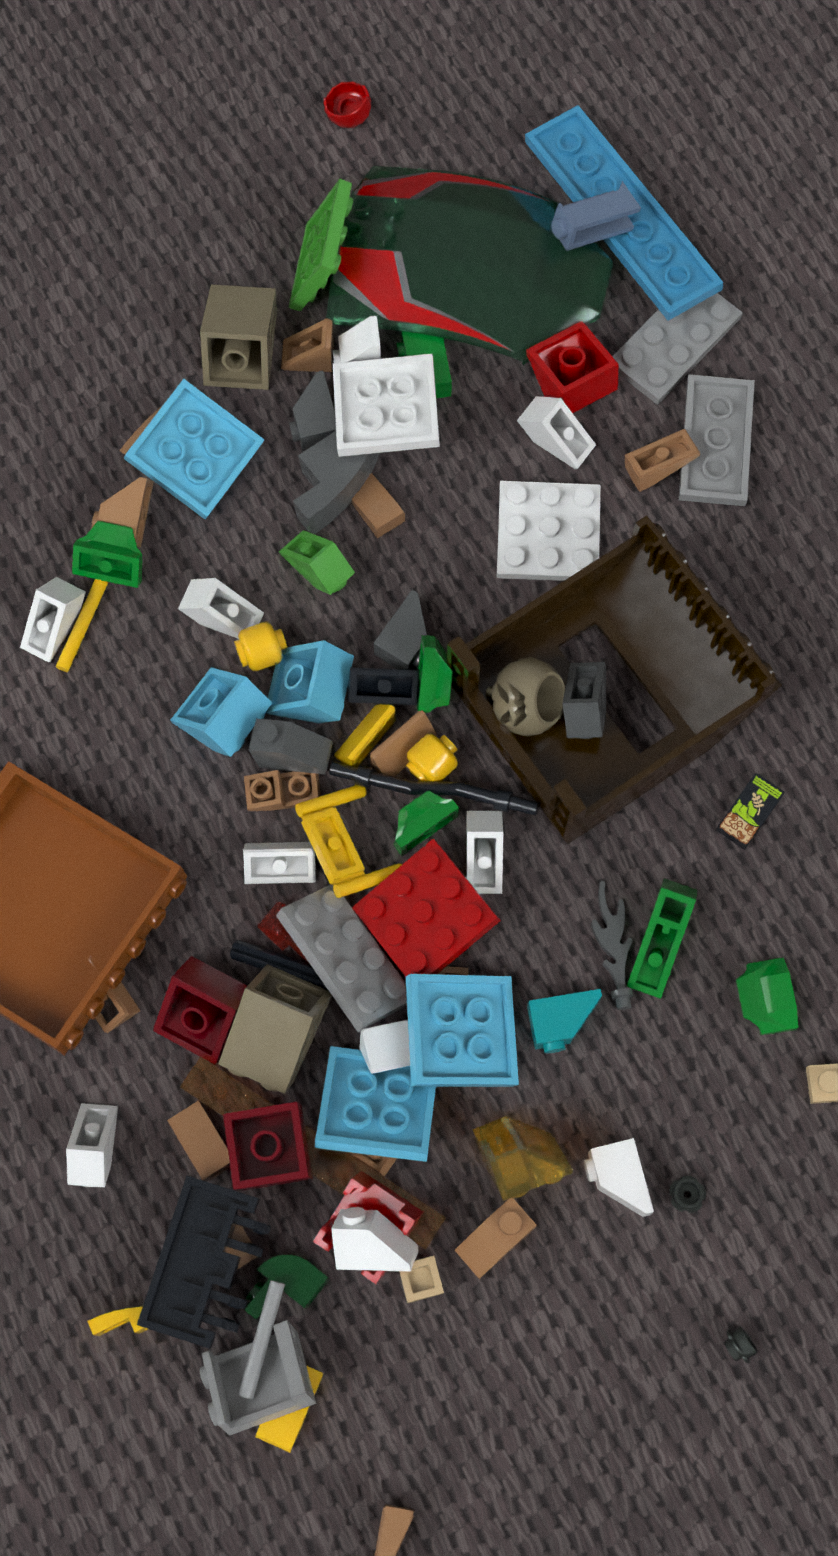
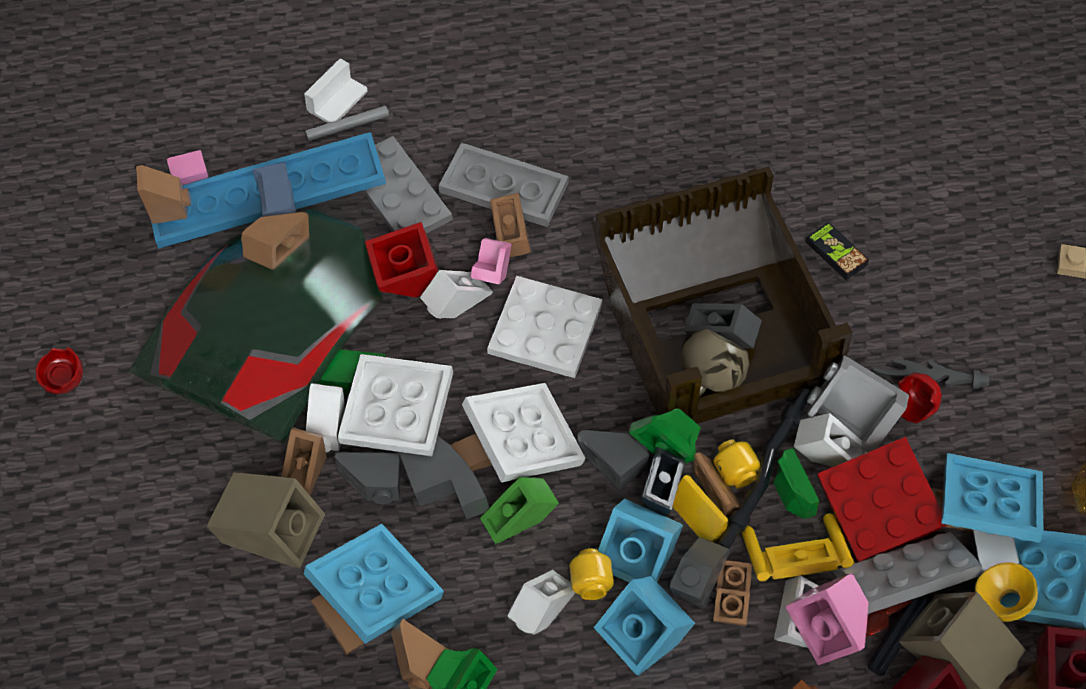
camera: 75 degrees left, 15 degrees down
(266, 884) = (832, 618): none -> bright pink slope
(320, 245) = (212, 418): bright green plate -> none
(334, 1044) = (1006, 579): none -> yellow piece
(400, 537) = (523, 432): none -> white plate
(532, 861) = (859, 401): none -> light grey panel
(537, 227) = (274, 238): none -> medium nougat slope
(560, 1018) = (992, 425): teal slope -> none
(567, 111) = (162, 195): none -> medium nougat slope
(571, 931) = (923, 398): none -> red hair
(602, 456) = (492, 261): none -> bright pink panel
(623, 132) = (188, 167): none -> bright pink panel
(662, 938) = (933, 333): green slope -> none
(746, 264) = (346, 123): none -> light grey bar
(768, 996) = (996, 275): green slope -> none
(779, 238) = (334, 93): none -> white panel

